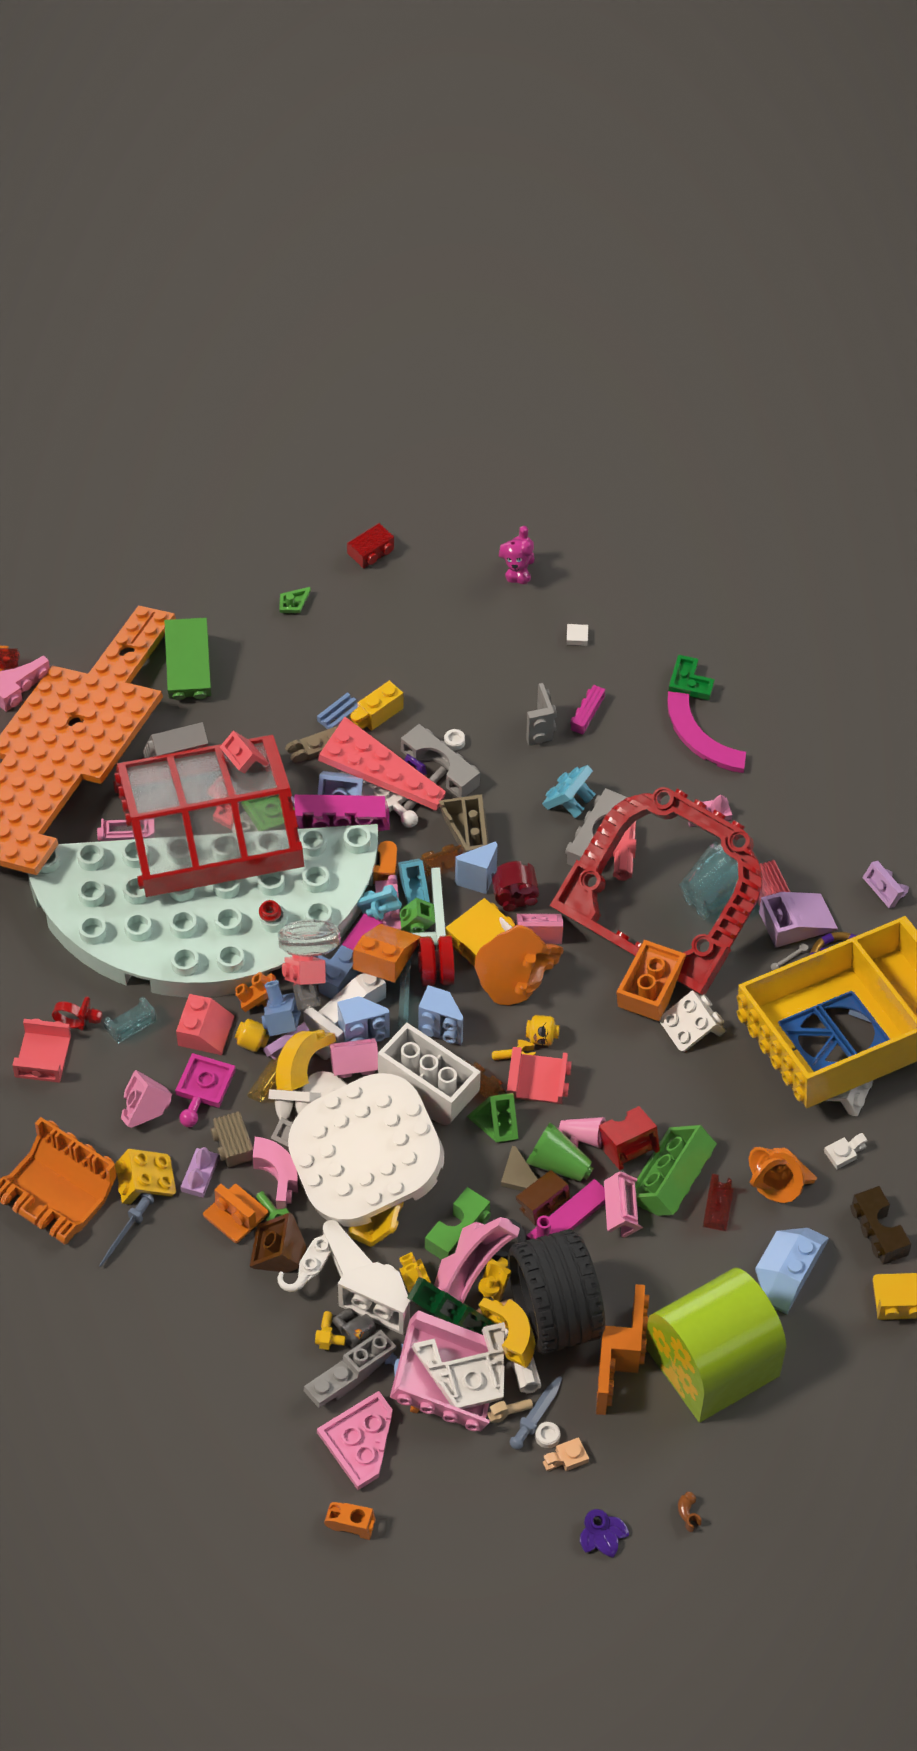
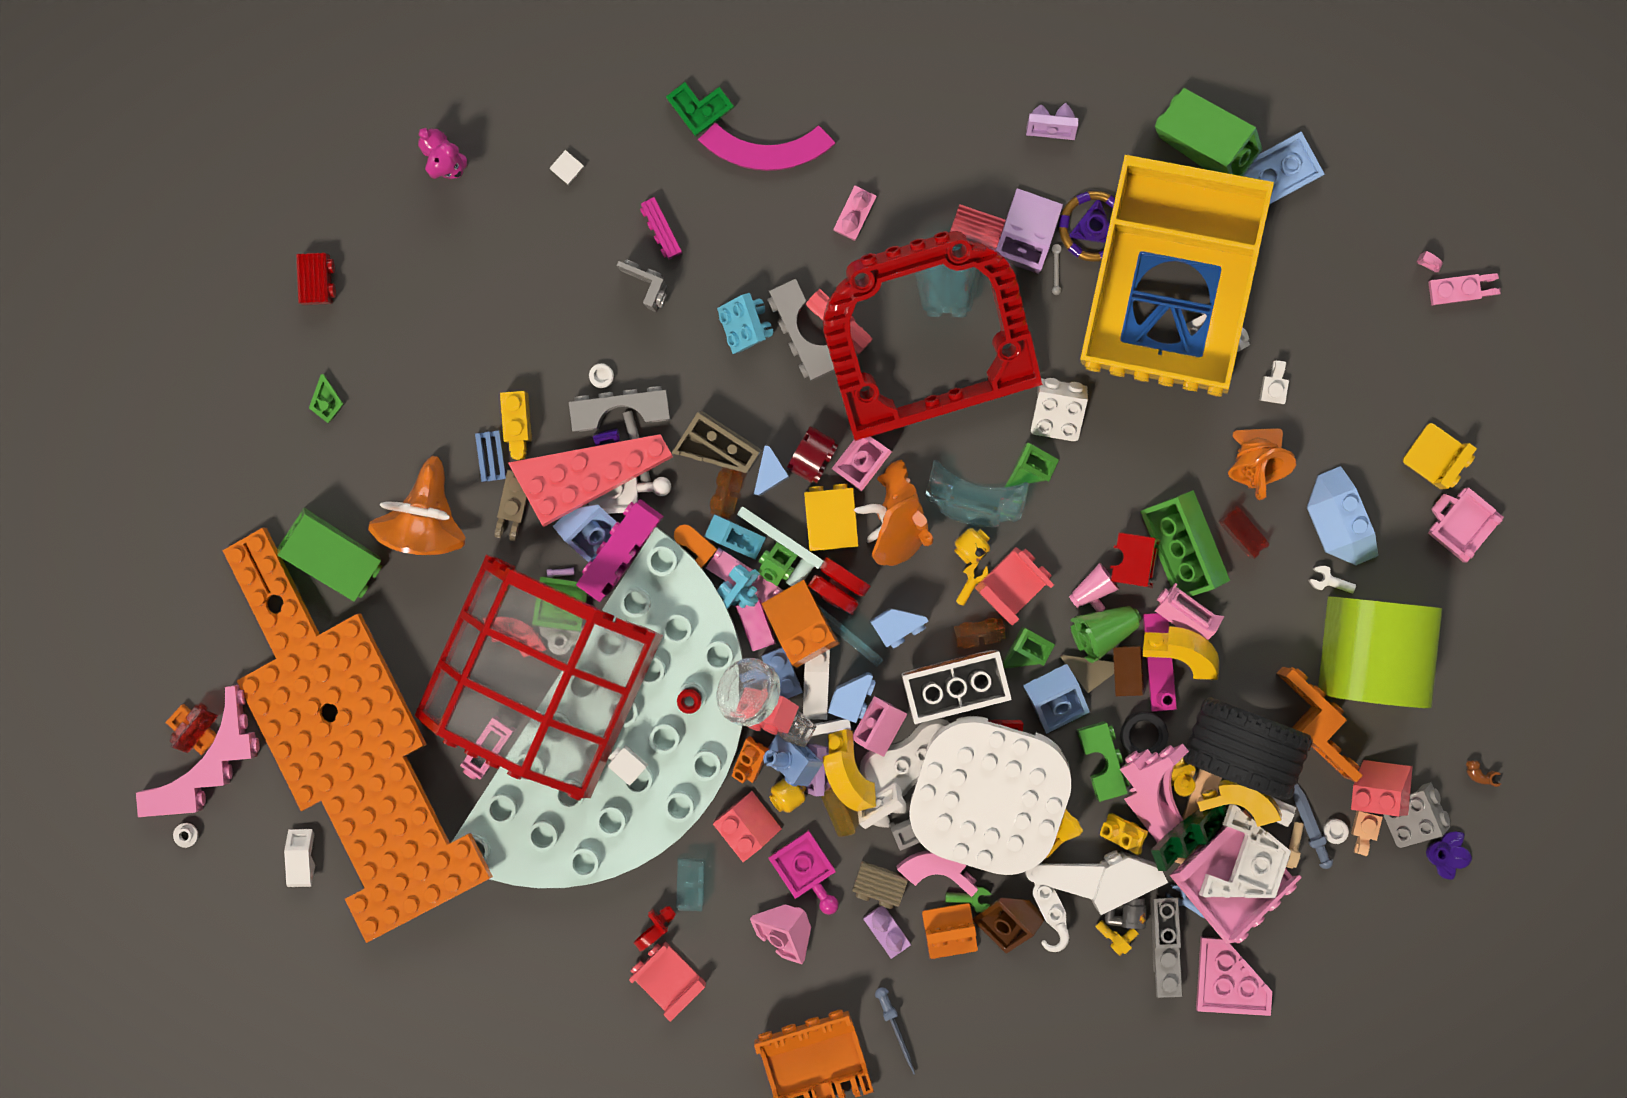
camera: 50 degrees left, 35 degrees up
(144, 1173) = (859, 980): yellow bracket -> none
(176, 740) = (436, 652): light grey arch -> none
(190, 901) = (626, 764): none -> white brick
(242, 752) = (519, 618): coral panel -> none
(264, 693) = (424, 518): none -> orange animal
(350, 1519) = (1292, 1041): orange leg -> none
(477, 1163) = (1056, 698): none -> light blue slope
(570, 1008) = (974, 503): none -> clear light blue windscreen
(597, 1218) = (1186, 647): none -> yellow arch
(608, 1434) = (1382, 788): none -> coral slope
(613, 1481) = (1424, 819): none -> light grey bracket
(634, 1030) = (1032, 466): none -> bright green slope
(650, 980) = (998, 415): orange slope -> none
(868, 1354) = (1464, 523): none -> bright pink piece
(886, 1242) = (1345, 413): dark brown arch -> none

